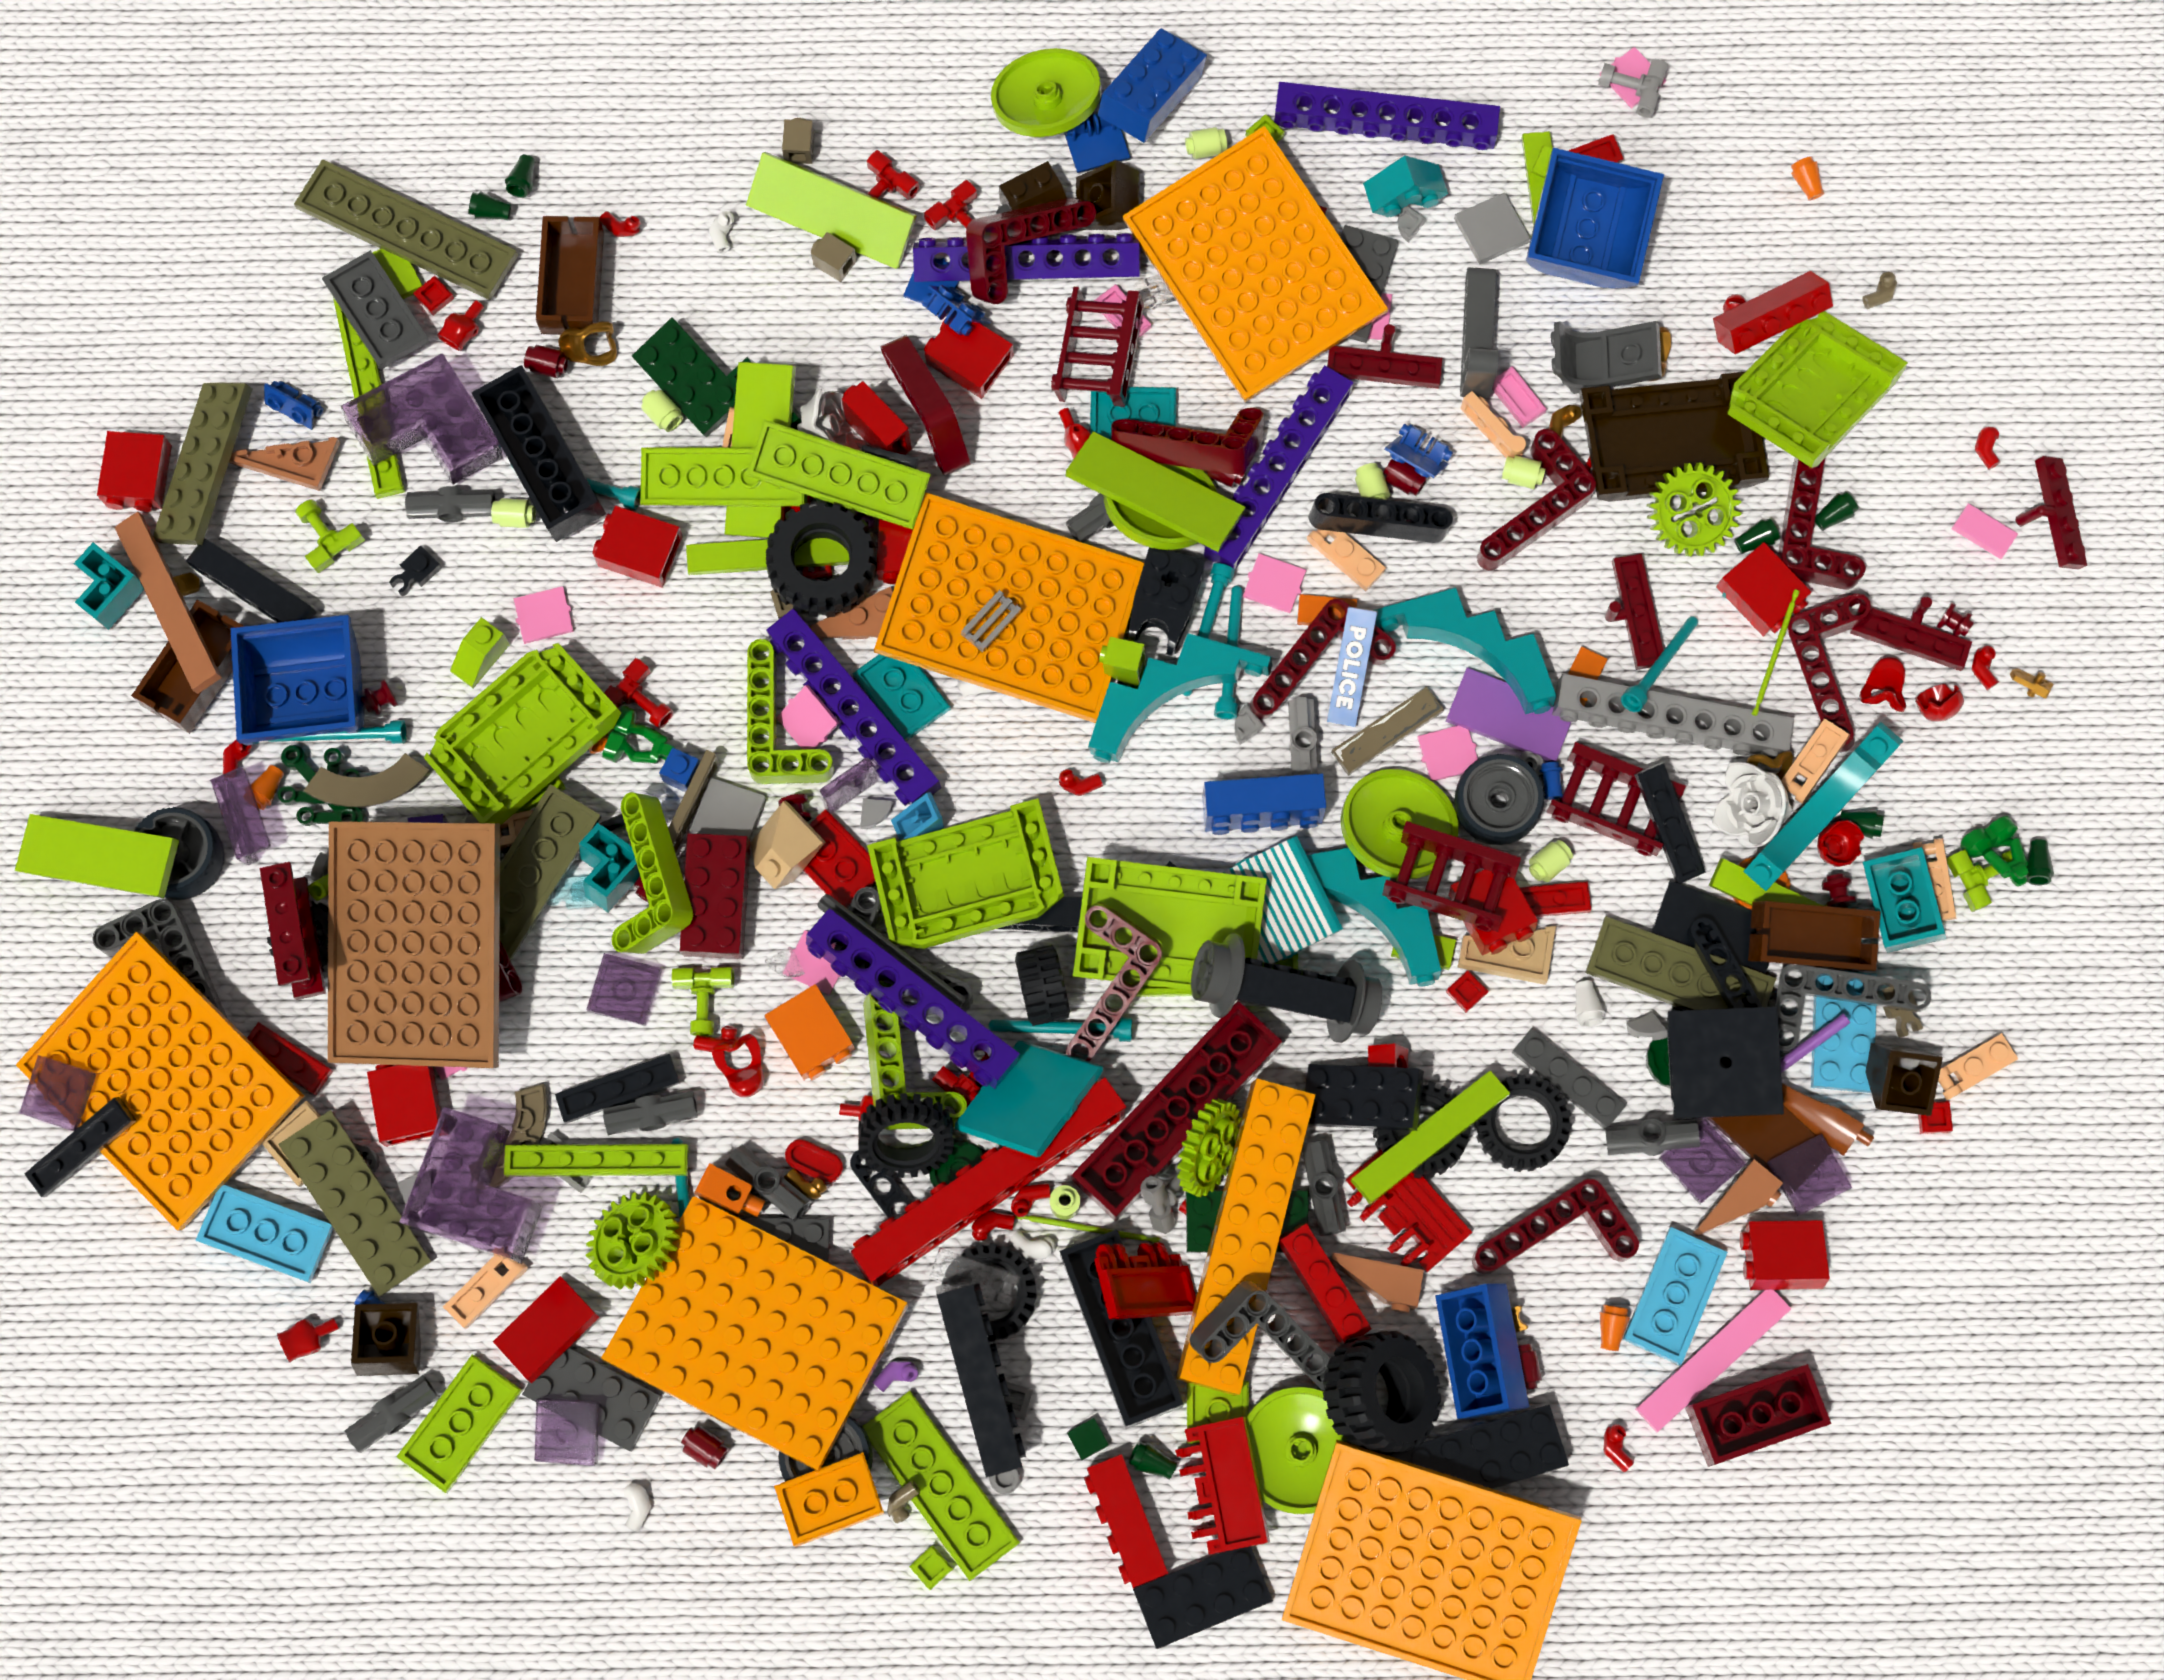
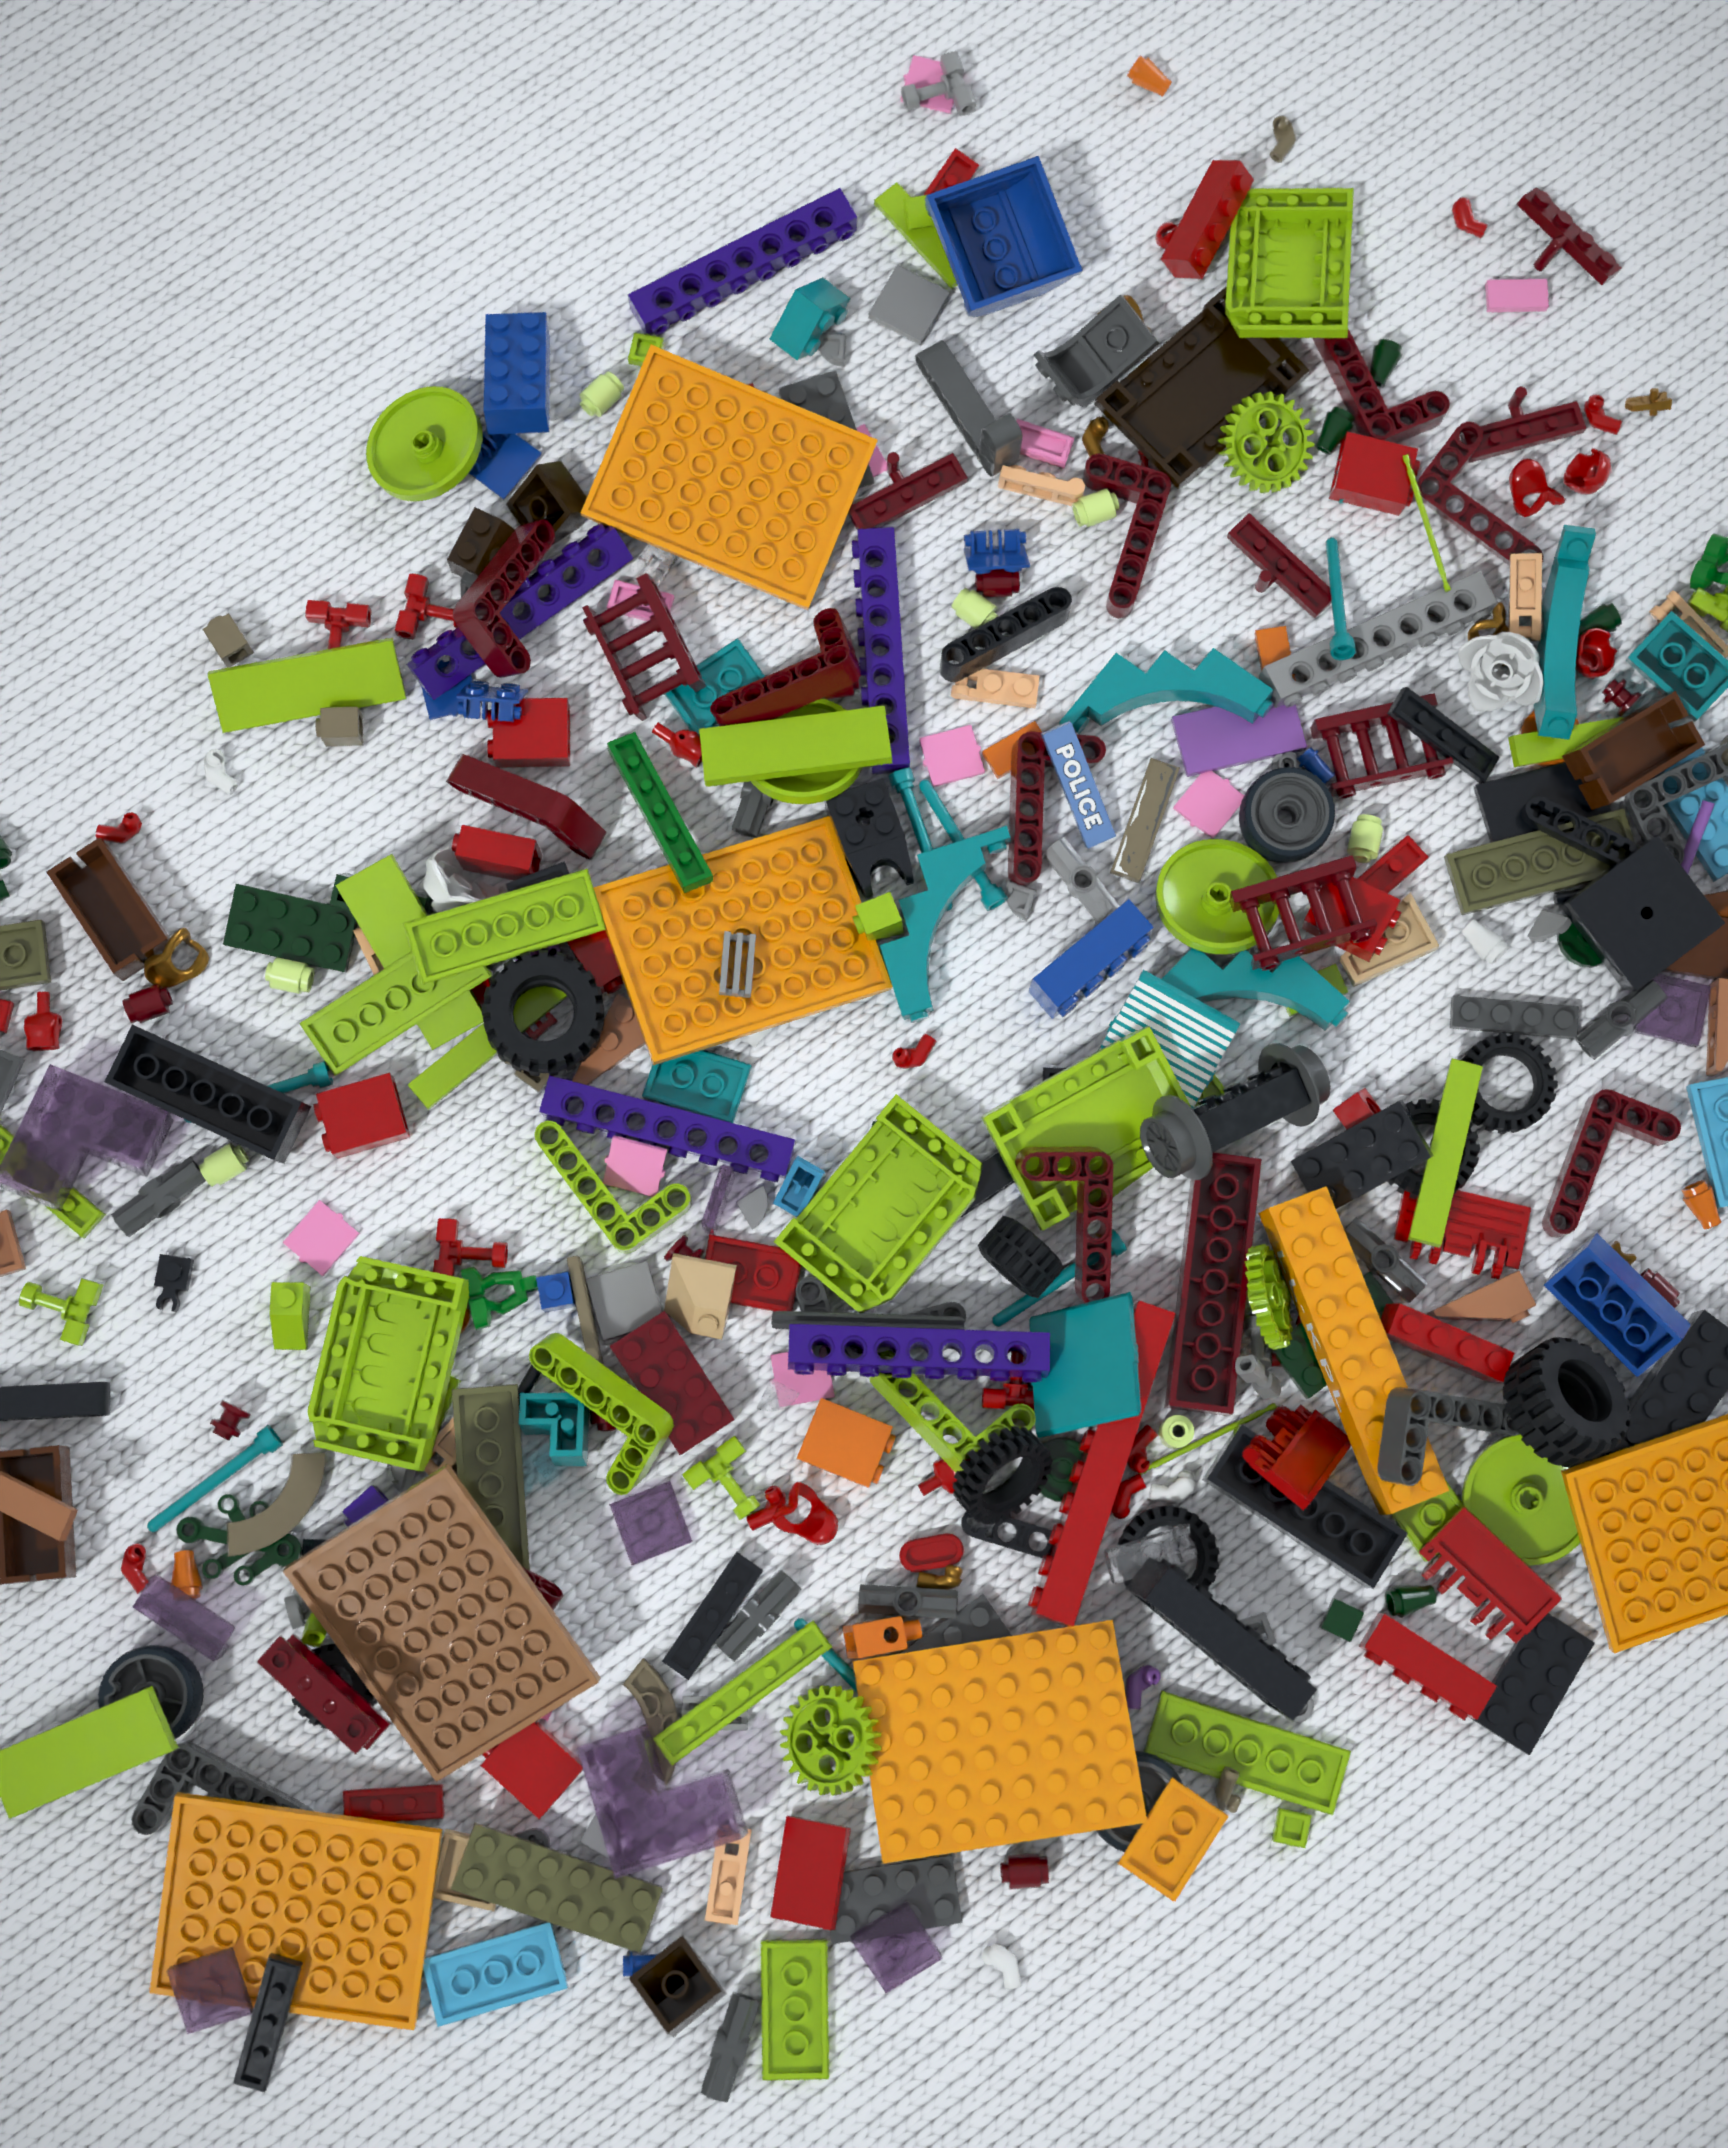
camera: 40 degrees left, 5 degrees up
(296, 679) = (145, 1461): blue container -> none
(304, 1338) = (602, 2039): red piece -> none
(1018, 473) = (660, 812): none -> green plate
(1467, 991) = (1376, 1002): red tile -> none
(1957, 622) = (1555, 392): dark red wheel -> none

